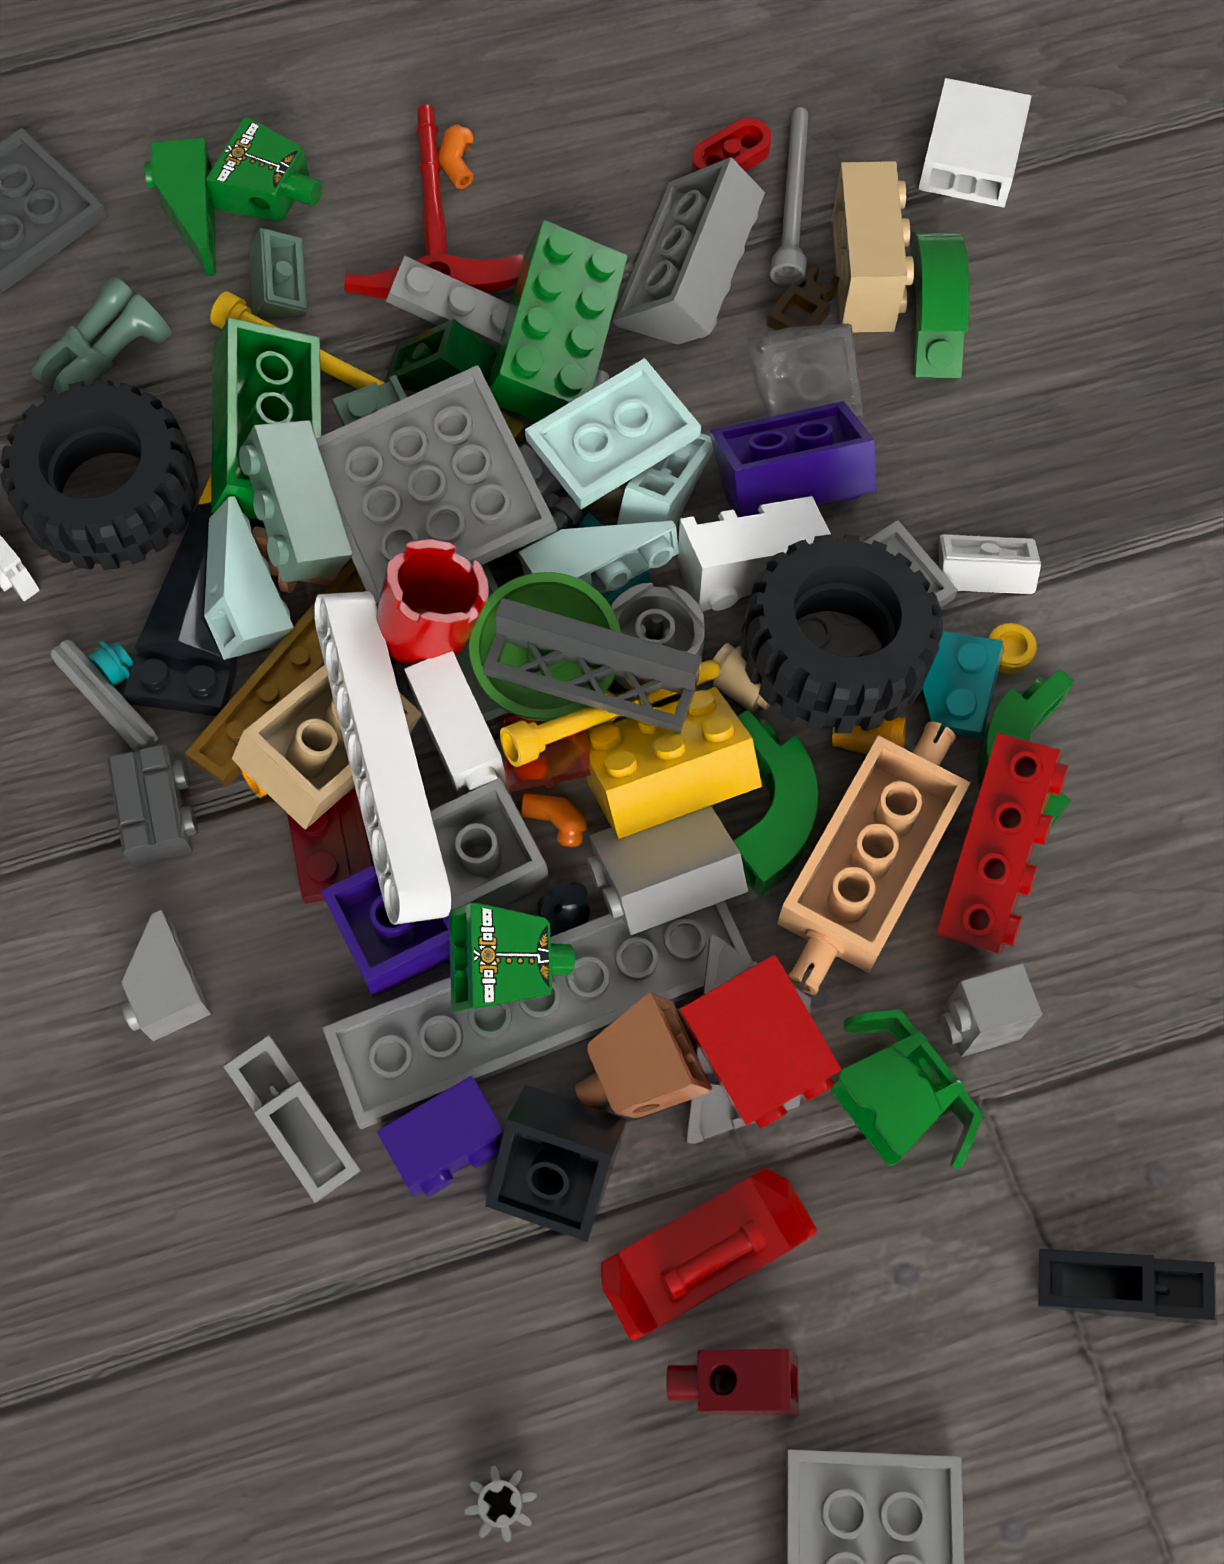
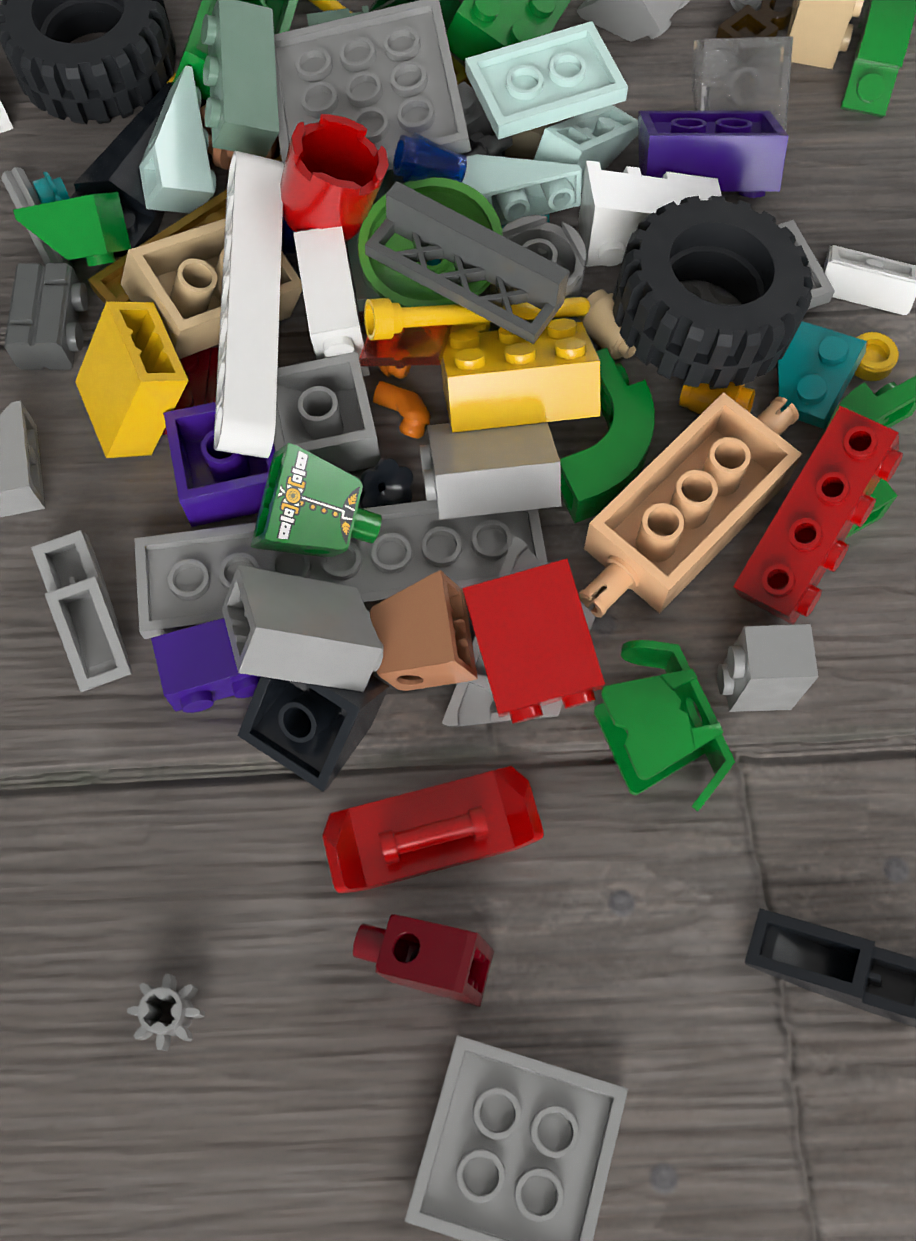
camera: 15 degrees right, 0 degrees up
(161, 700) = (80, 226): none -> green slope
(273, 862) = (130, 379): none -> yellow brick
(516, 556) = (422, 159): none -> clear blue cone
(530, 1088) = (300, 630): none -> light grey brick

